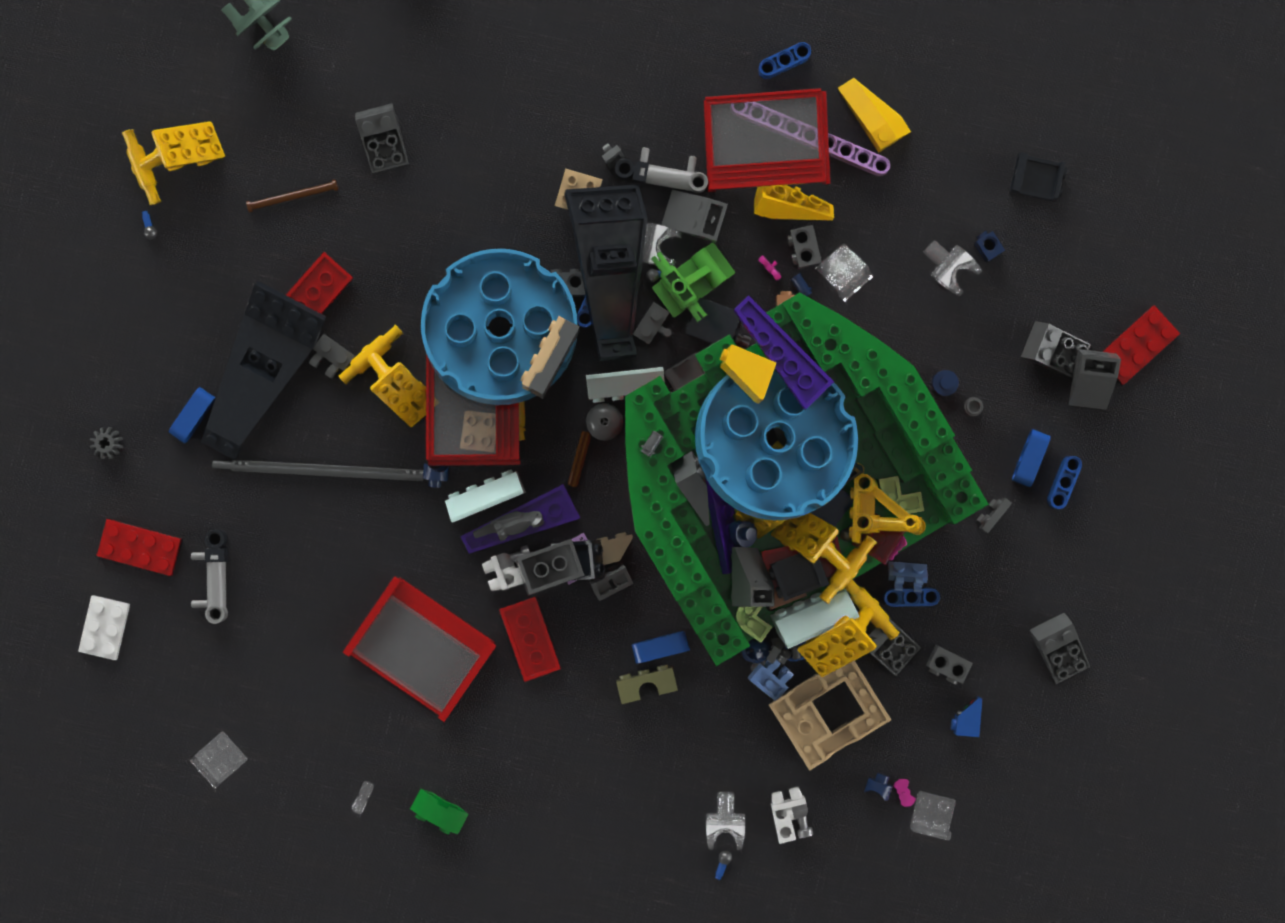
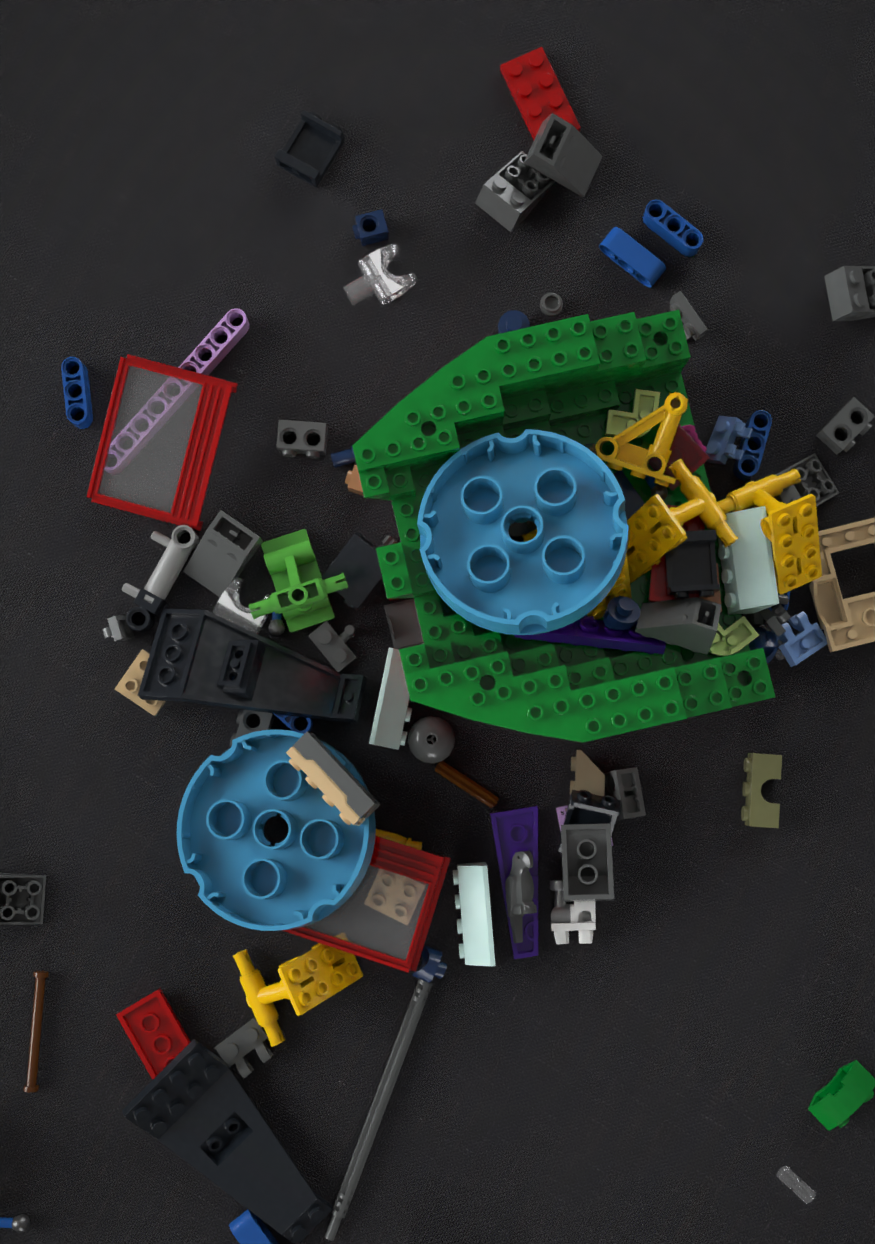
camera: 70 degrees left, 5 degrees down
(420, 647) = (633, 1052): clear piece -> none
(530, 639) = (664, 914): red plate -> none
(651, 444) = (481, 685): dark grey pin -> none
(660, 647) = (722, 759): blue beam -> none
(692, 483) = (543, 652): dark grey slope -> none
(748, 371) = (429, 536): yellow slope -> none
(770, 267) = (312, 486): dark pink piece -> none
(790, 203) = (243, 444): yellow wedge -> none
(793, 365) = (431, 484): dark purple wing -> none
(845, 271) = (346, 401): clear bracket -> none
(877, 118) = (180, 310): yellow wedge -> none

